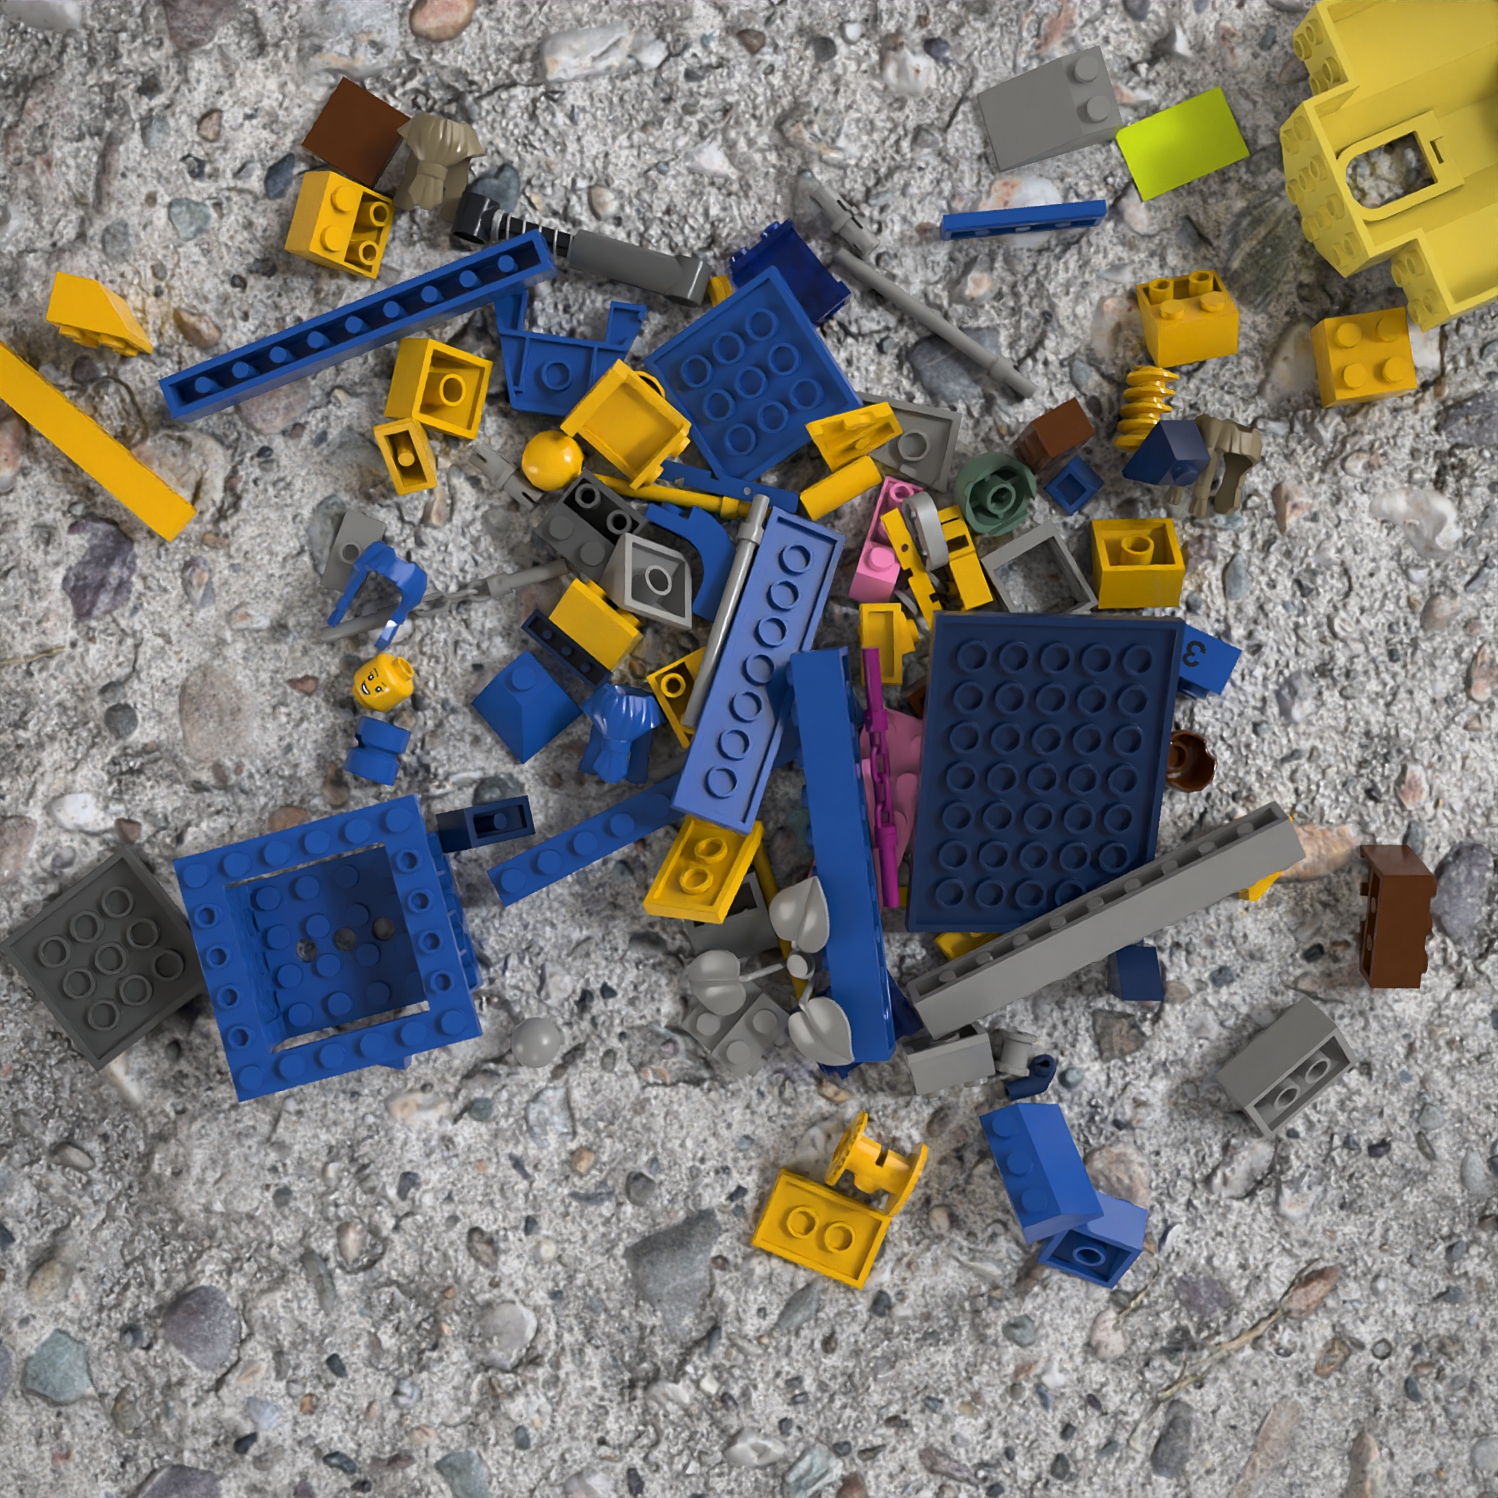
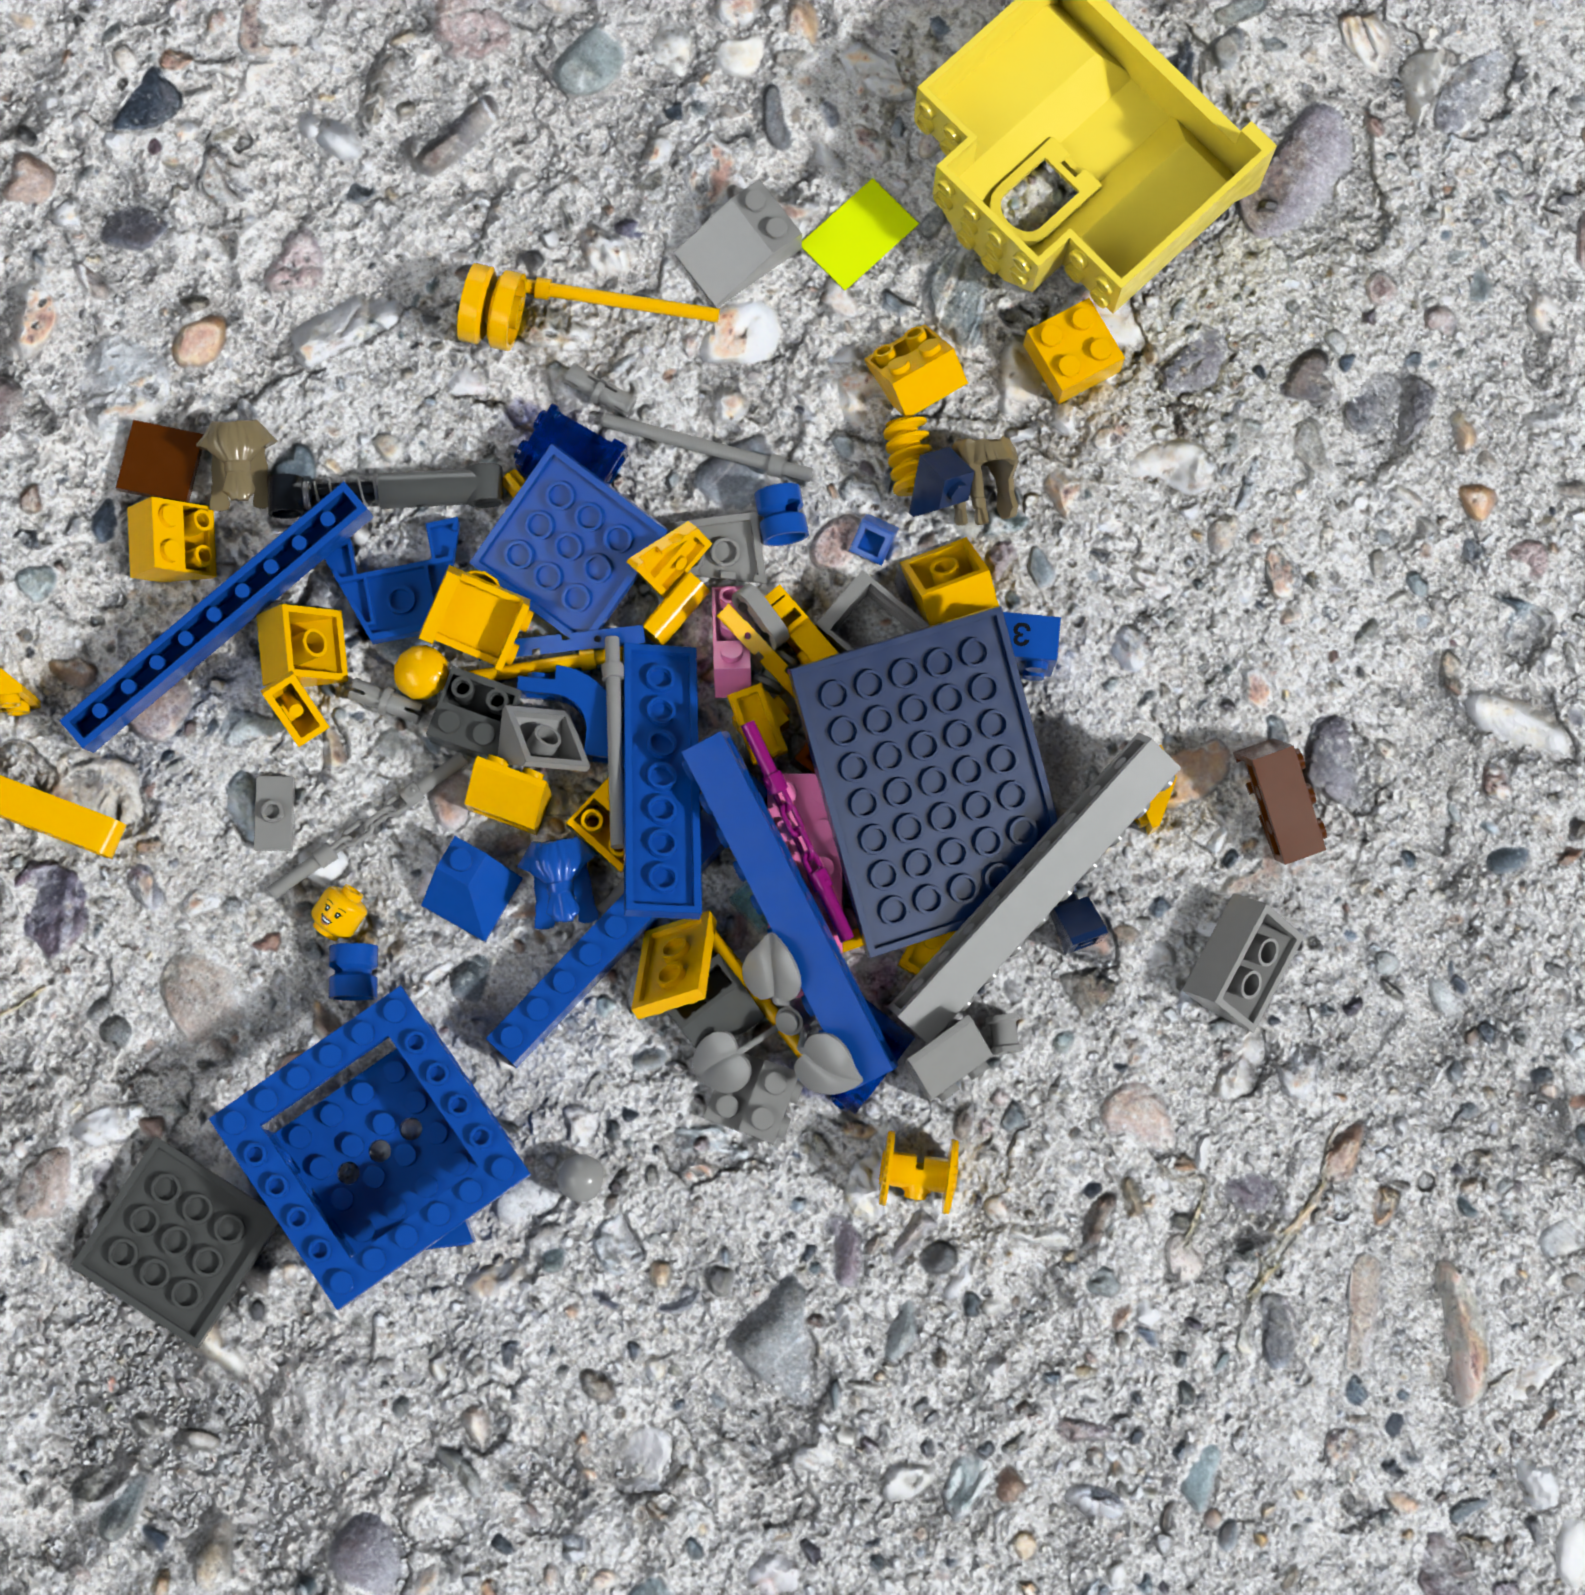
camera: 25 degrees left, 10 degrees down
(406, 576) = (325, 810): blue piece -> none
(485, 824) = (469, 1003): dark blue slope -> none
(566, 650) = (488, 828): dark blue piece -> none
(761, 87) = (491, 307): none -> yellow wheel
(821, 1228) = (893, 1254): yellow tile -> none
(825, 86) = (544, 289): none -> yellow bar
(987, 424) = (781, 514): none -> blue wheel
(994, 492) = (807, 565): sand green cylinder -> none
(1022, 220) = (748, 339): blue tile -> none
(1040, 1076) = (1033, 1055): dark blue arm -> none
(1040, 1169) = (1060, 1122): blue slope -> none
(1053, 436) = (838, 501): reddish brown brick -> none
(1100, 1248) = (1133, 1171): blue slope -> none
(1189, 762) = (1056, 732): reddish brown hair -> none

